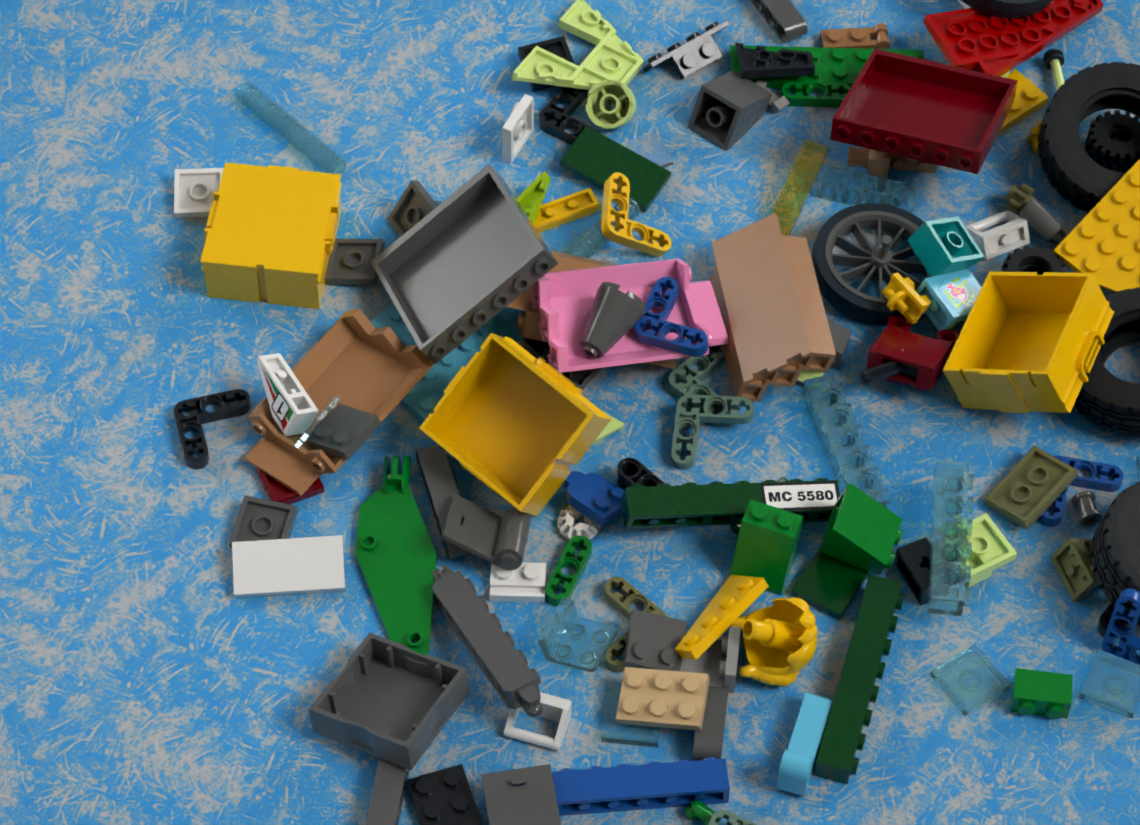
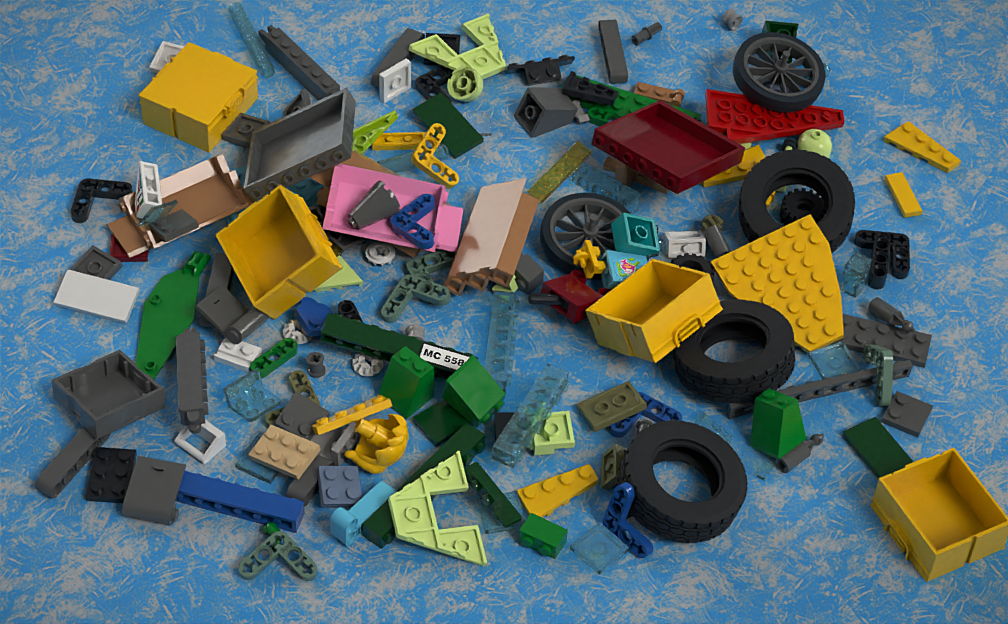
camera: 20 degrees right, 5 degrees down
(380, 147) = (298, 63): none -> dark grey hinge
(498, 94) = (398, 53): none -> dark grey beam
(631, 561) = (315, 362): none -> dark grey bush
(637, 378) = (380, 247): none -> white gear
(692, 545) = (364, 368): none -> white gear
(733, 473) = (416, 331): none -> light grey wheel
(755, 719) = (339, 486): none -> sand blue plate
(881, 729) = (416, 520): none -> yellowish green wing
(950, 661) = (491, 495): none -> dark green bracket
(1019, 630) = (551, 493): none -> yellow wing
(1083, 48) = (815, 141): none -> yellowish green cylinder

